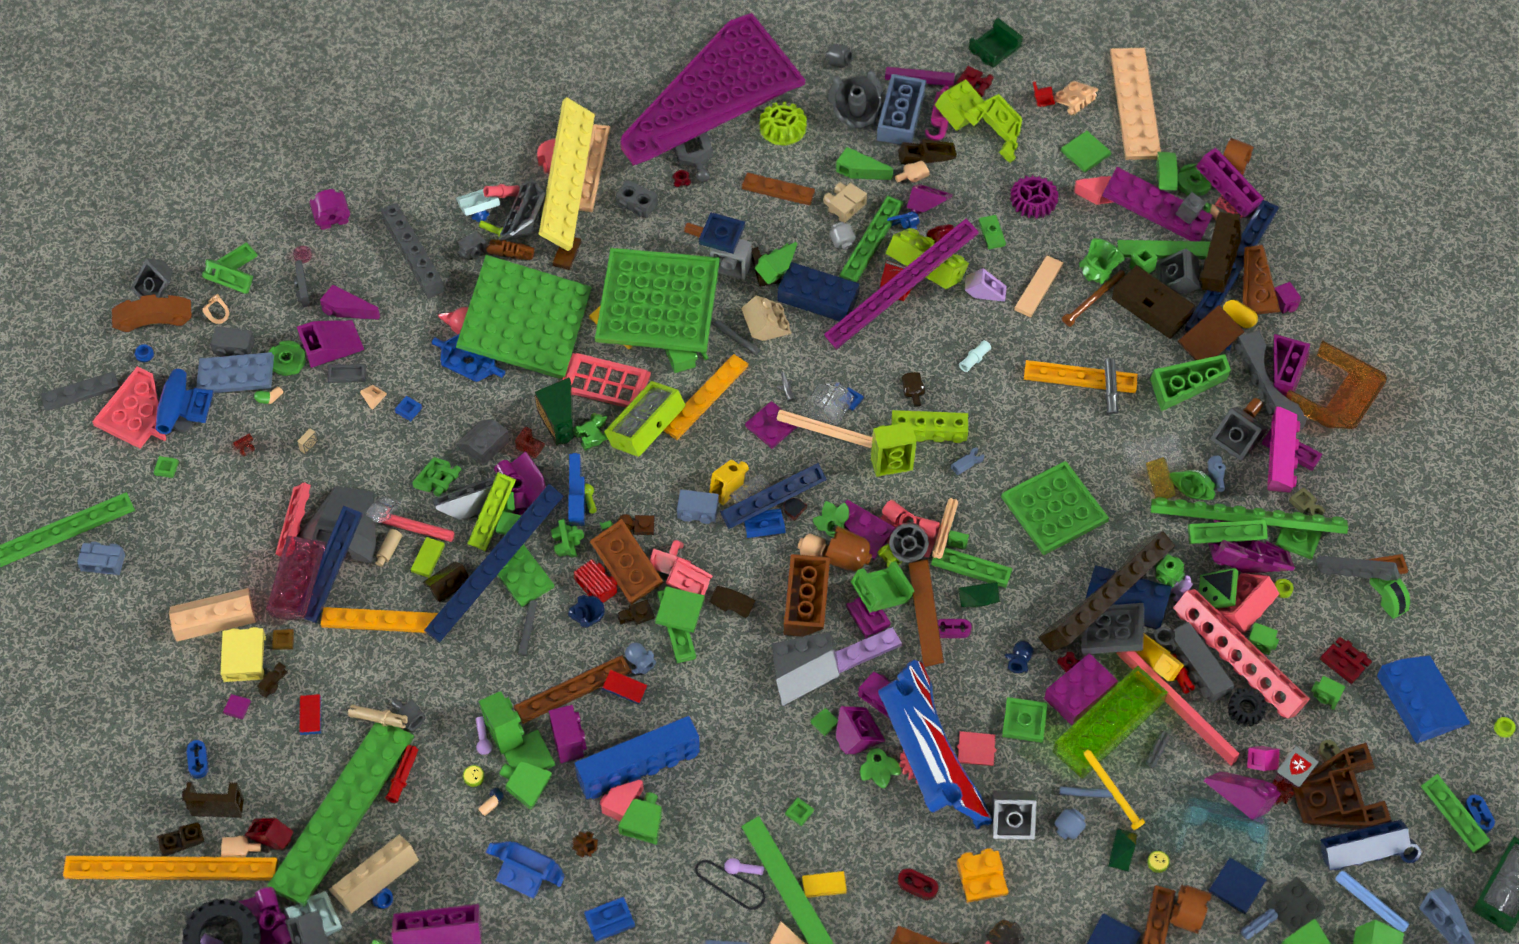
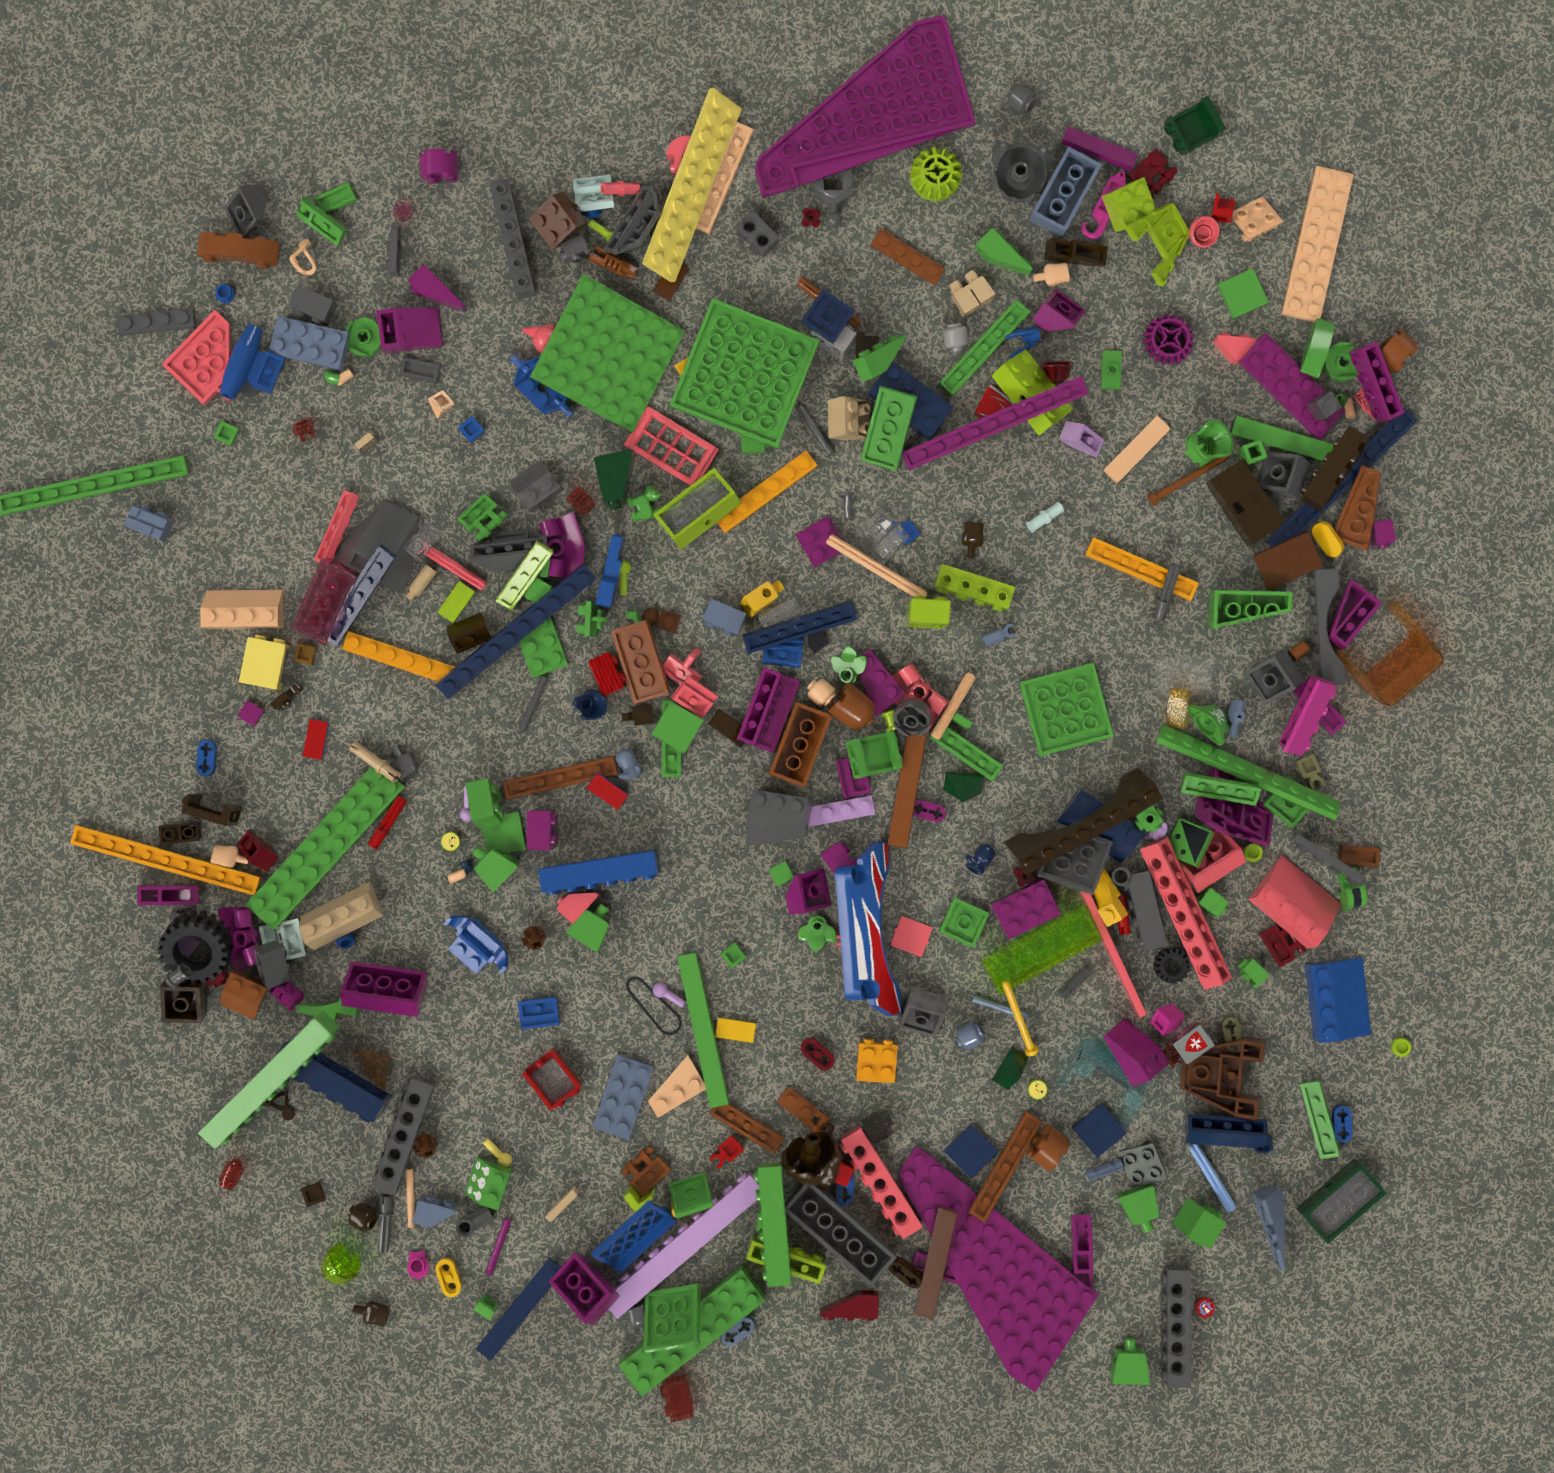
camera: 20 degrees right, 30 degrees up
(176, 902) = (167, 895): none -> magenta slope
(450, 223) = (557, 220): none -> reddish brown brick
(765, 575) = (768, 710): none -> magenta slope
(805, 314) = (888, 428): none -> bright green tile
(1033, 111) = (1204, 231): none -> coral piece
(1342, 620) = (1296, 903): none -> coral slope

